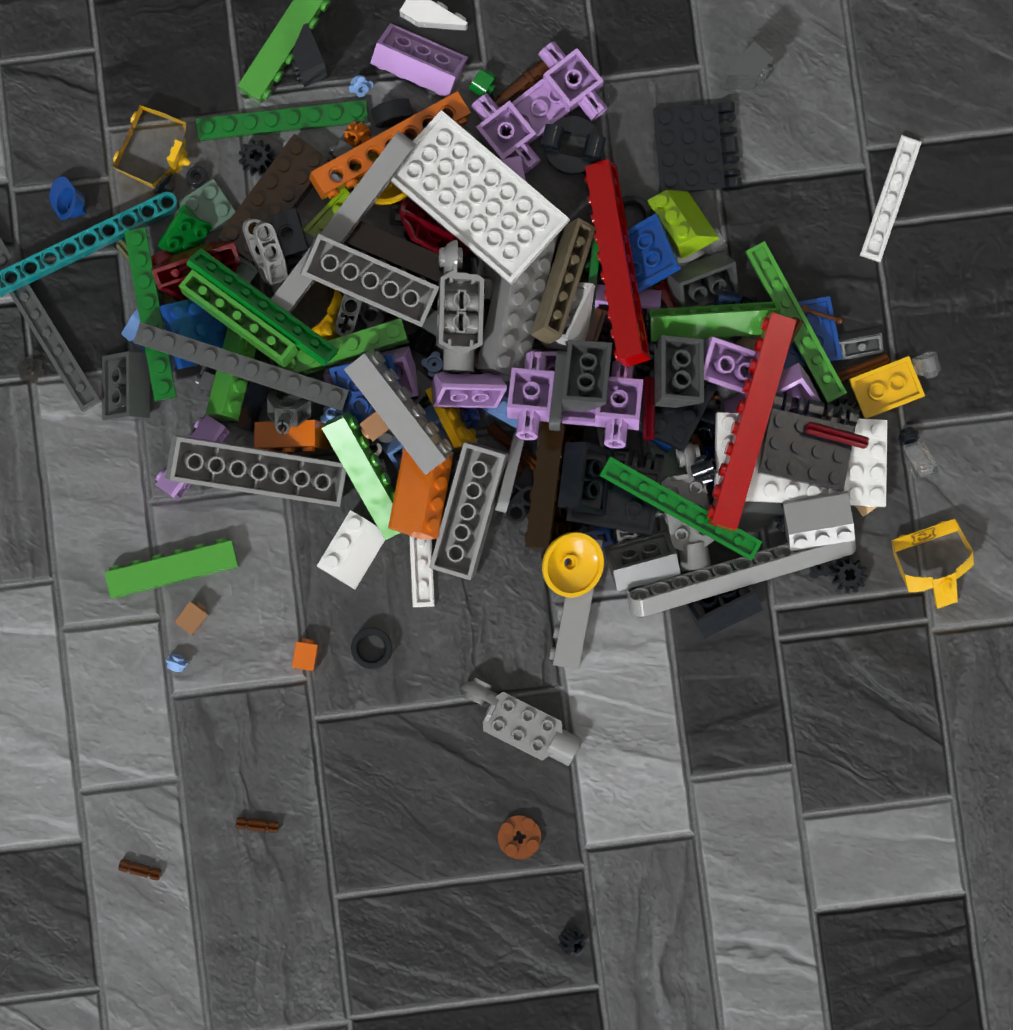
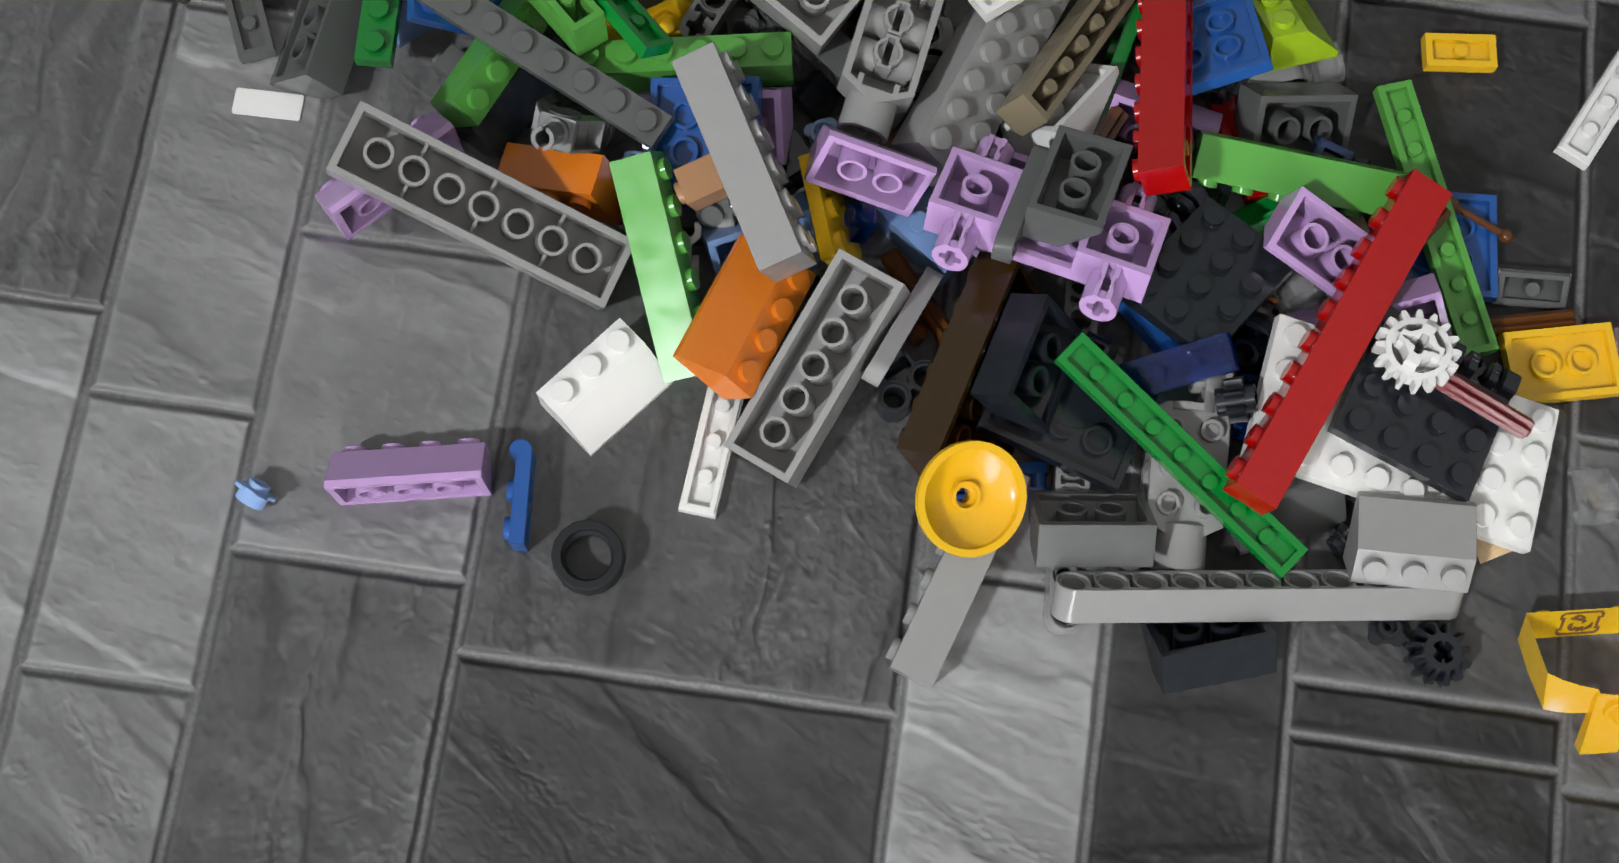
camera: 15 degrees right, 10 degrees down
(105, 431) = (268, 104): none -> white sticker
(140, 869) = (71, 830): reddish brown axle -> none
(171, 569) = (297, 339): bright green brick -> none
(192, 617) = (305, 426): medium nougat brick -> none
(257, 824) = (299, 807): reddish brown axle -> none
(259, 628) = (409, 472): none -> lavender slope
(305, 655) = (473, 538): orange brick -> none
(323, 623) = (520, 493): none -> blue plate
(523, 724) = (810, 757): light grey brick -> none
(648, 408) = (1166, 275): dark red axle -> none
(669, 459) = (1183, 365): none -> clear blue plate
(678, 371) = (1231, 227): dark grey slope -> none
(786, 417) = (1435, 349): none -> white gear
(791, 210) = (1459, 52): none -> yellow plate
(908, 436) = (1584, 451): black plate -> none

